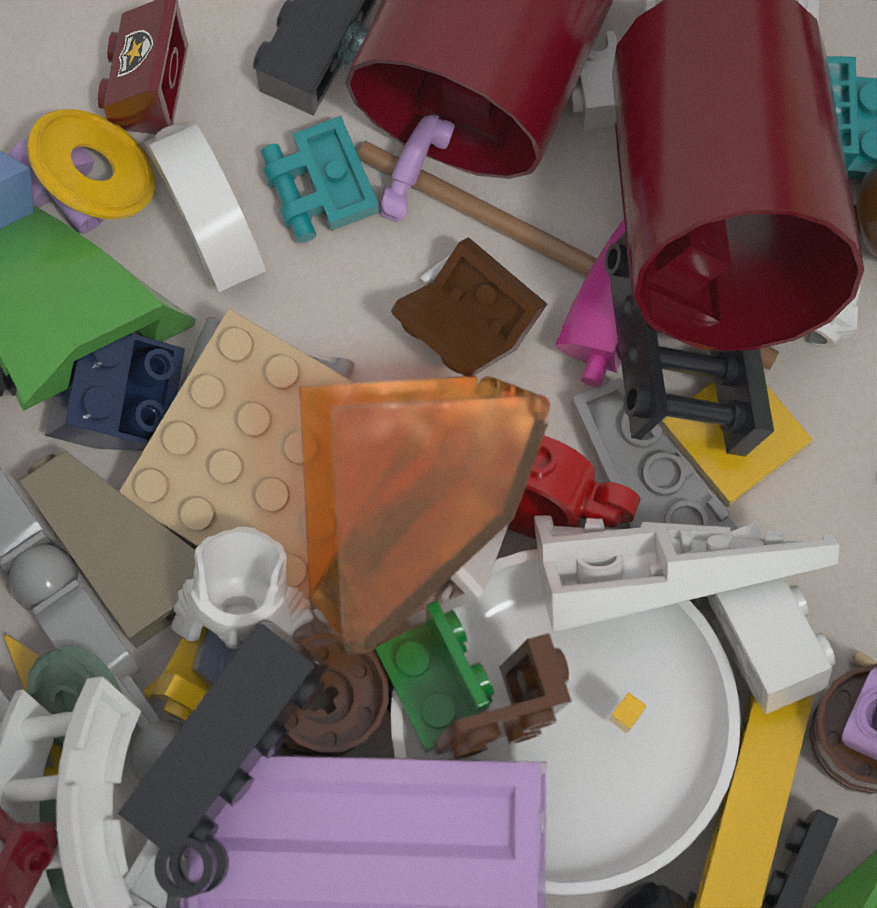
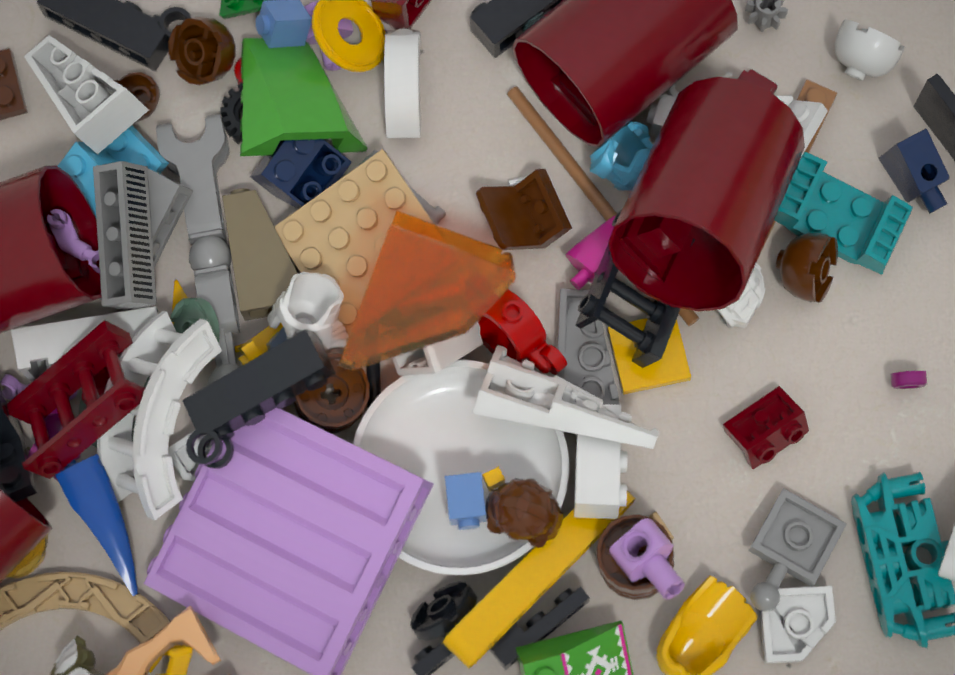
camera: 30 degrees right, 0 degrees up
(335, 174) = (488, 97): teal plate -> none
(408, 167) = (535, 109): lavender arm -> none
(434, 675) = (392, 414): green bracket -> none
(537, 691) = (447, 433): reddish brown bracket -> none
(575, 174) = (623, 156): none -> medium azure helmet
(606, 763) = (465, 500): none -> medium blue brick
(694, 741) = (524, 511): none -> reddish brown helmet

